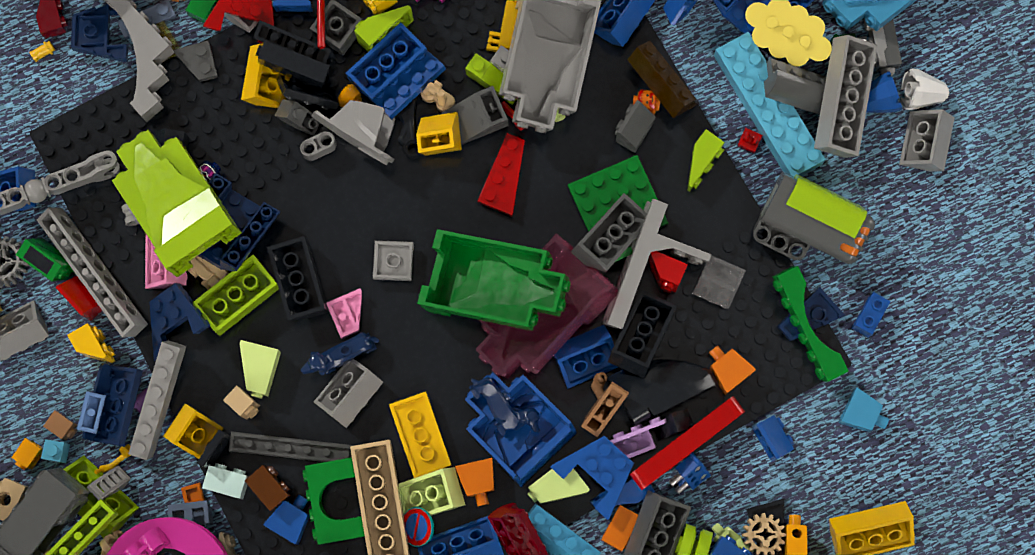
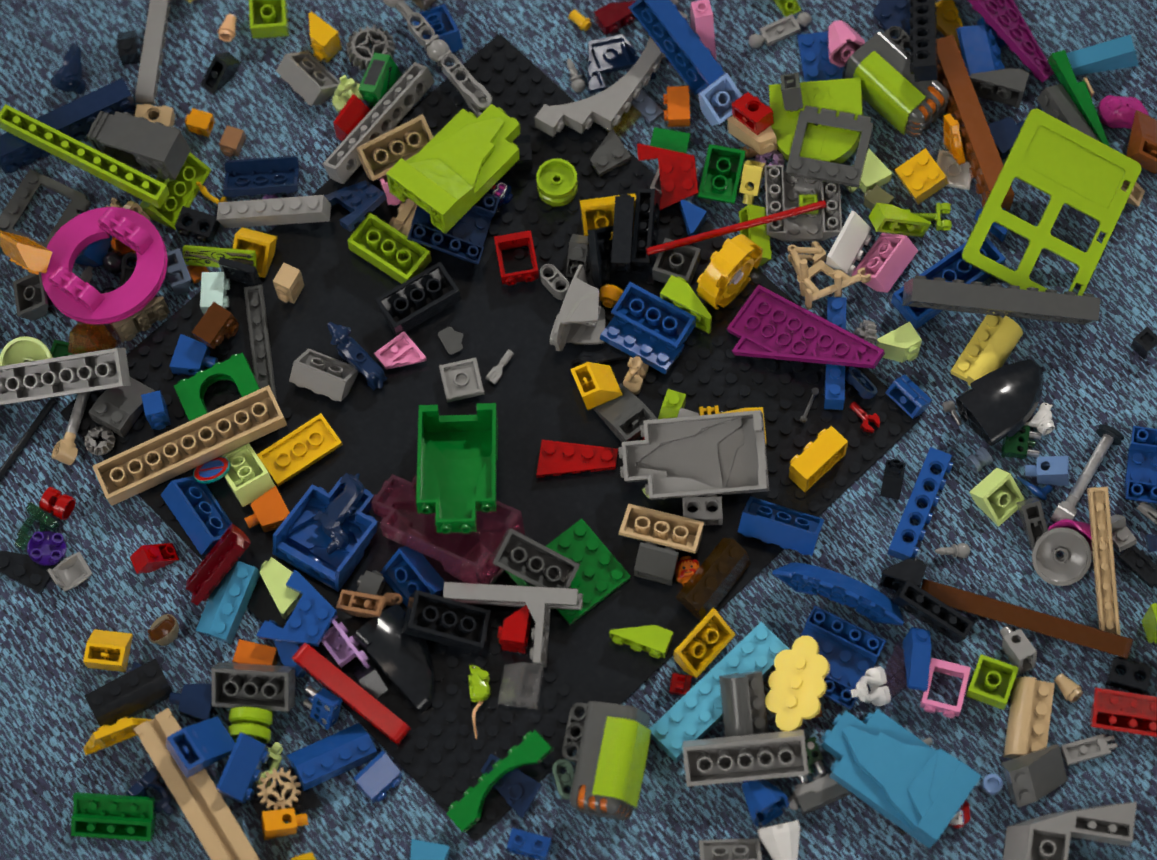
camera: 75 degrees right, 10 degrees down
(48, 298) = (341, 98): none -> yellowish green piece
(55, 451) = (207, 143): medium azure brick -> none
(90, 343) = (312, 142): yellow slope -> none
(91, 412) = (248, 161): medium blue slope -> none
(109, 482) = (198, 200): light grey slope -> none
(110, 72) = (577, 84): none -> light grey bar
(130, 259) = (387, 149): none -> tan slope
(139, 479) = (199, 221): none -> black brick
(188, 468) = (210, 256): none -> lime tile
(215, 104) = (556, 182): none -> lime wheel
(258, 367) = (327, 290): yellowish green slope -> none
(263, 170) = (513, 241): none -> red window
(346, 261) = (451, 340): none -> dark grey sticker
(395, 228) = (496, 372): none -> light grey piece
(580, 398) = (371, 583): none -> dark grey brick
(595, 73) = (702, 513): none -> light grey brick
(604, 112) = (662, 528): none -> tan slope
(711, 322) = (479, 689): none -> lime animal
(722, 106) = (703, 644): none -> yellow slope
(729, 368) = (436, 718): orange torso -> none
(739, 477) = (332, 756): none -> blue slope
(814, 266) = (563, 780): none -> sand green plate

